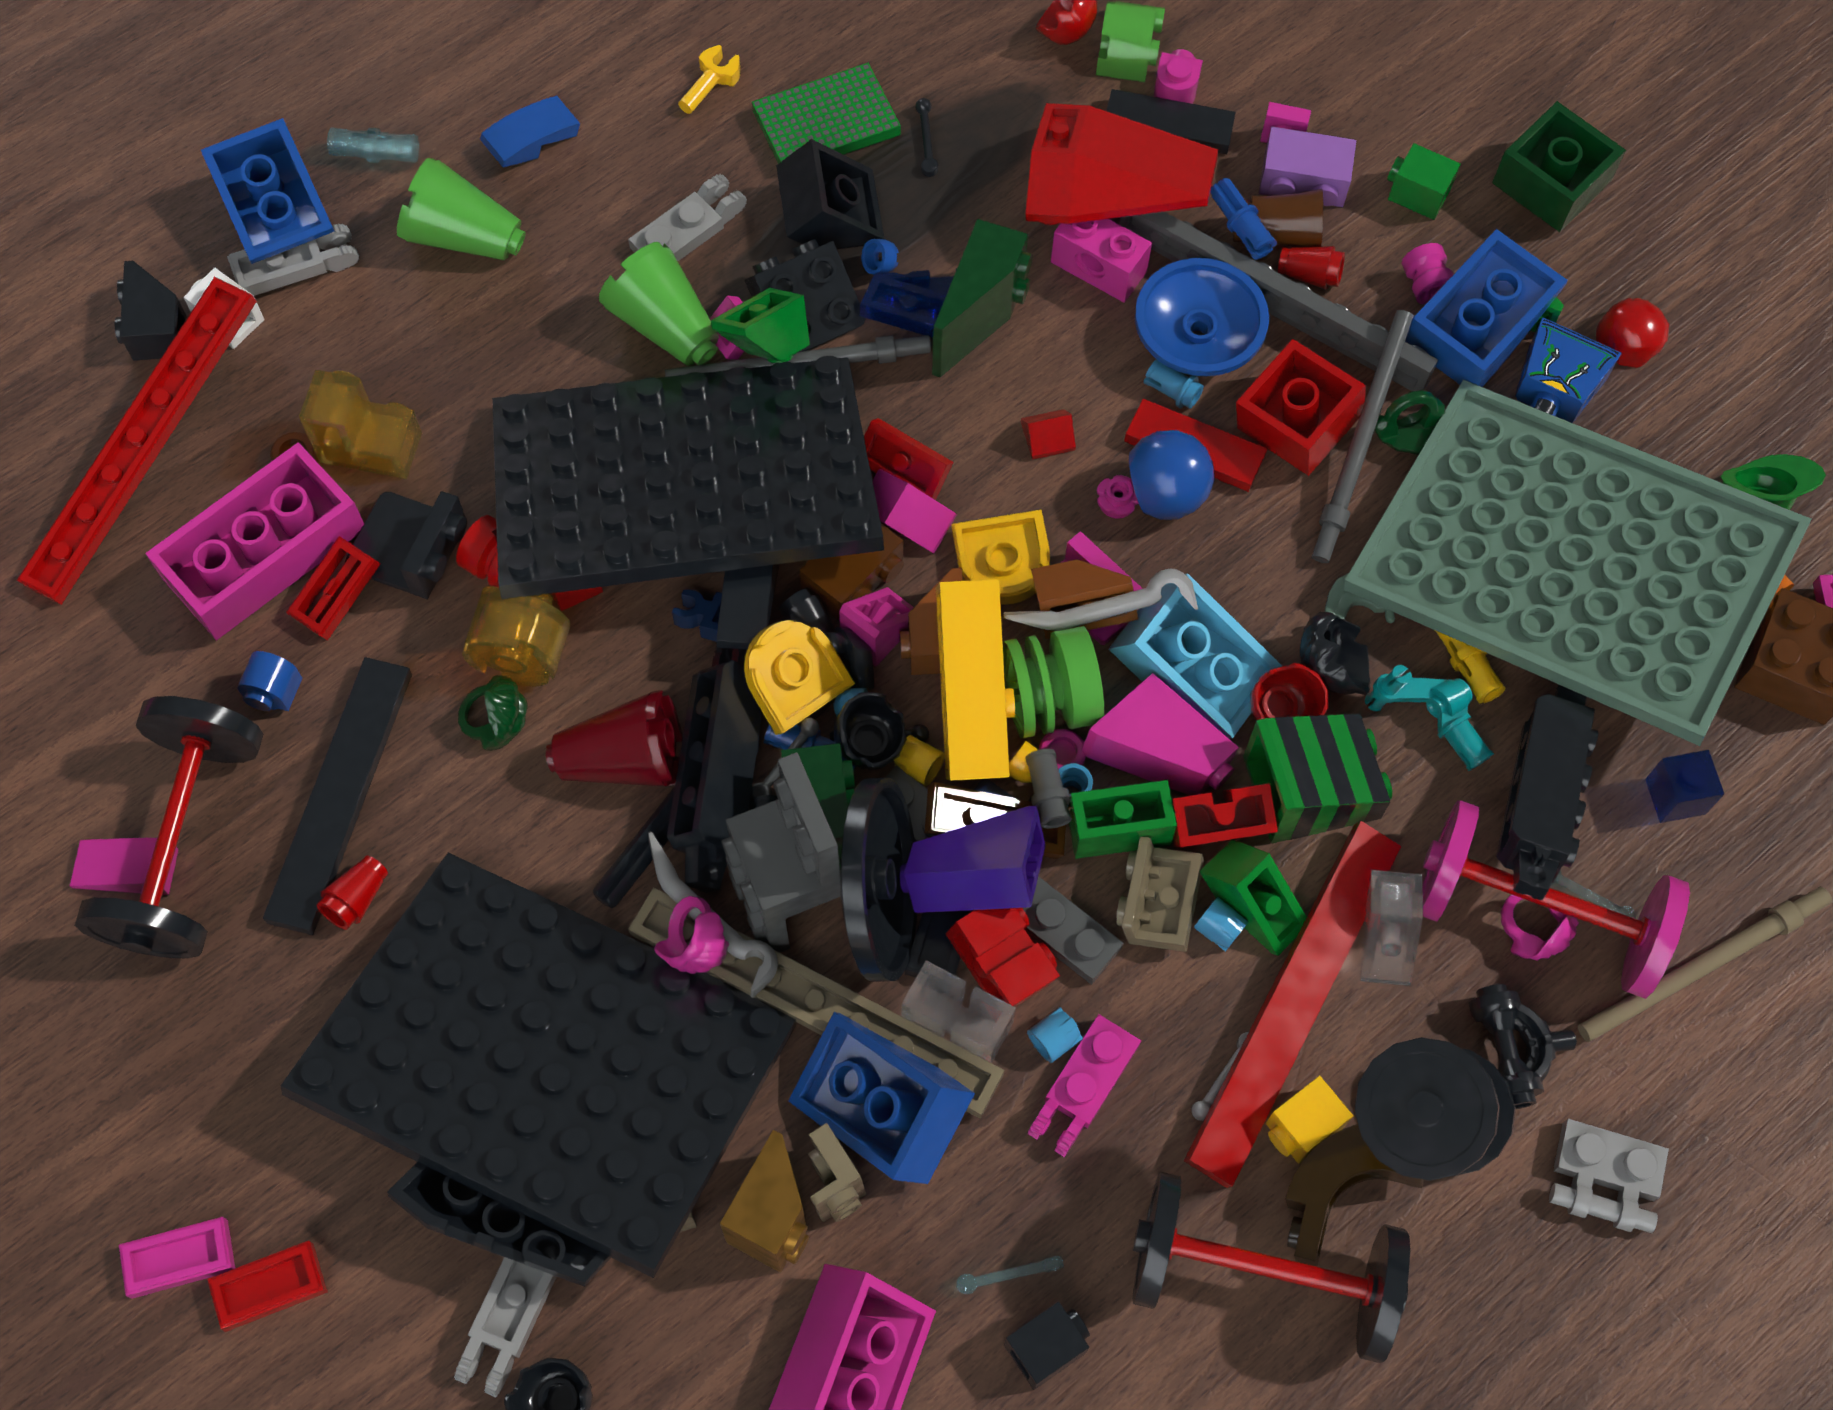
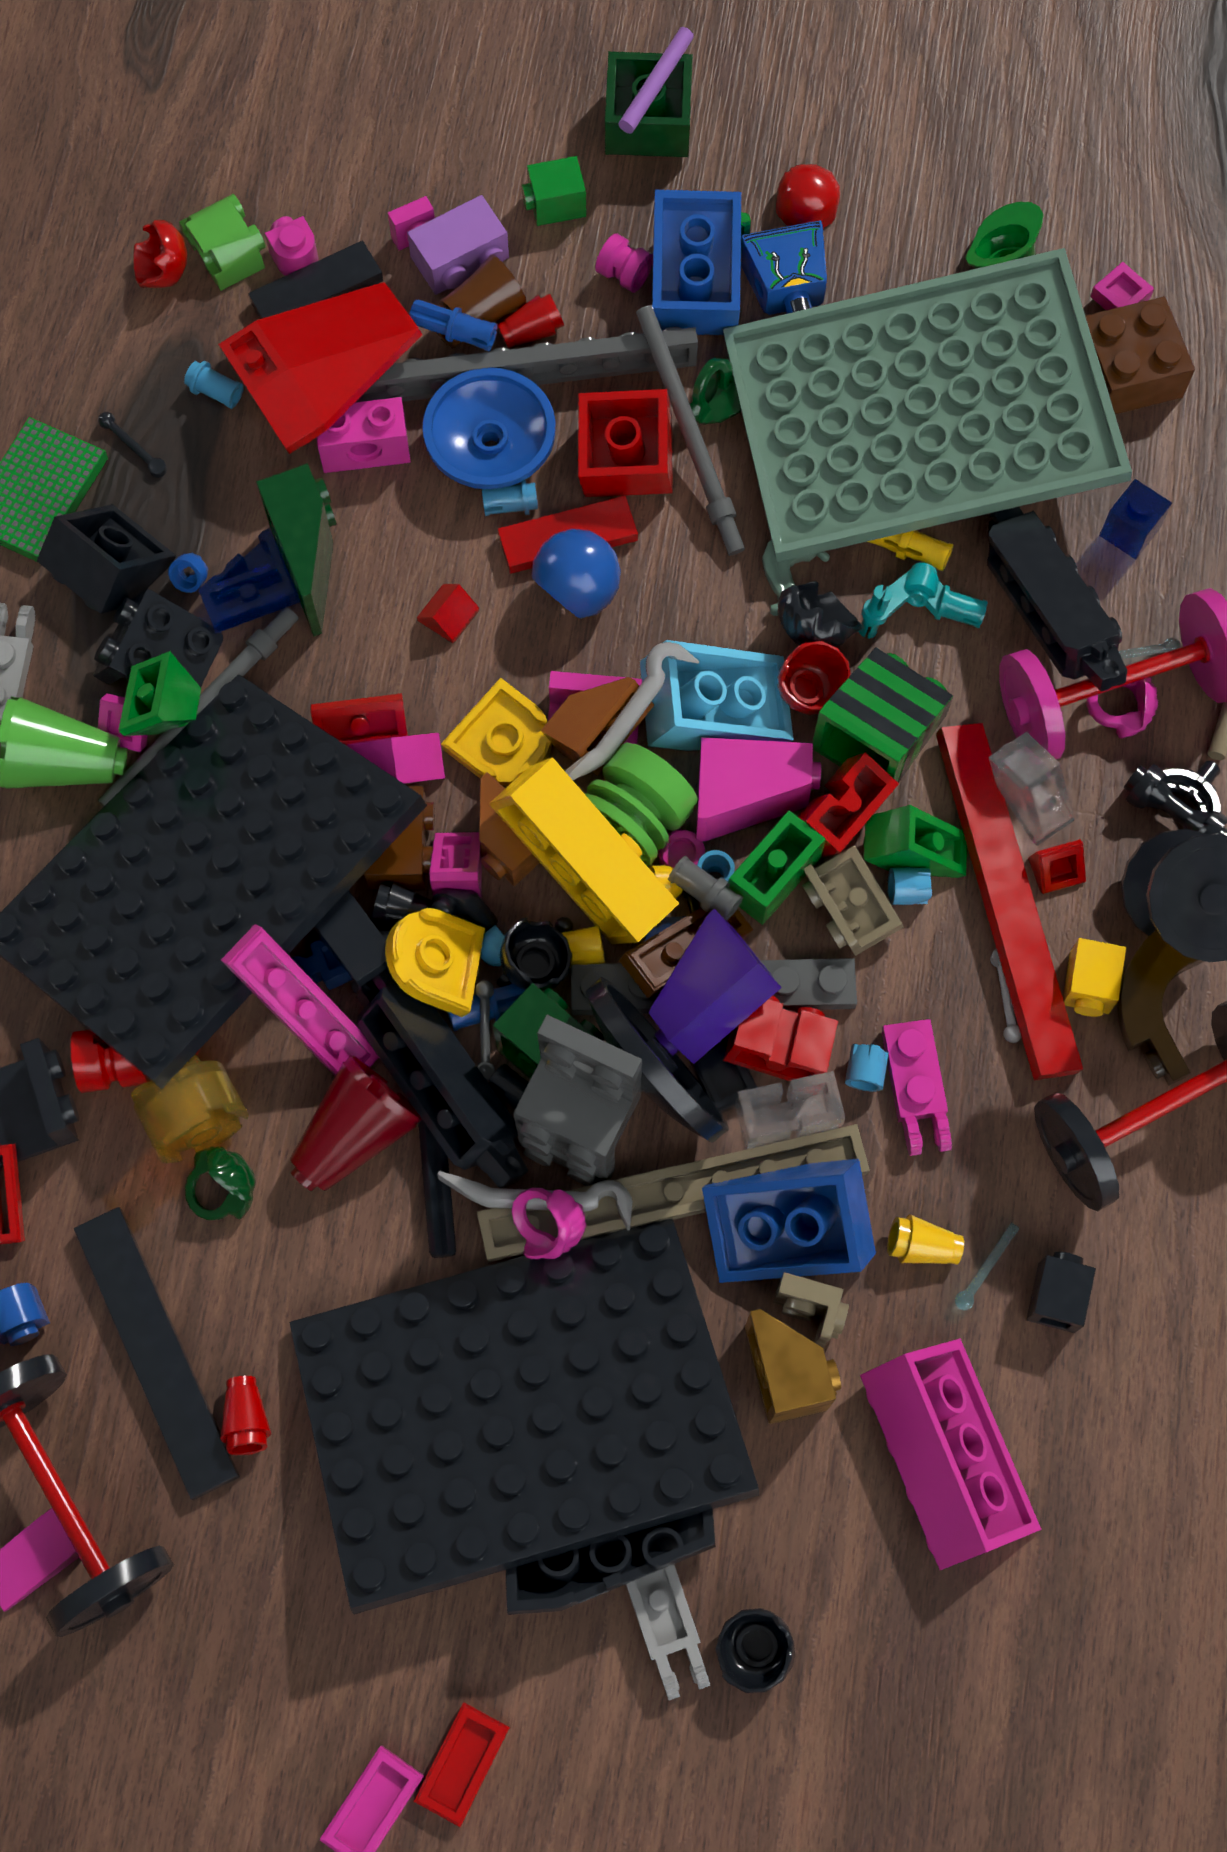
camera: 40 degrees left, 5 degrees up
(658, 616) = (297, 1000): none -> dark pink tile
(974, 1209) = (923, 1242): none -> yellow cone
(1020, 127) = (213, 384): none -> dark azure pin
(1114, 506) = (548, 631): dark pink plate -> none
(1362, 1011) = (1059, 866): none -> red slope
(1575, 147) = (656, 80): none -> medium lavender bar

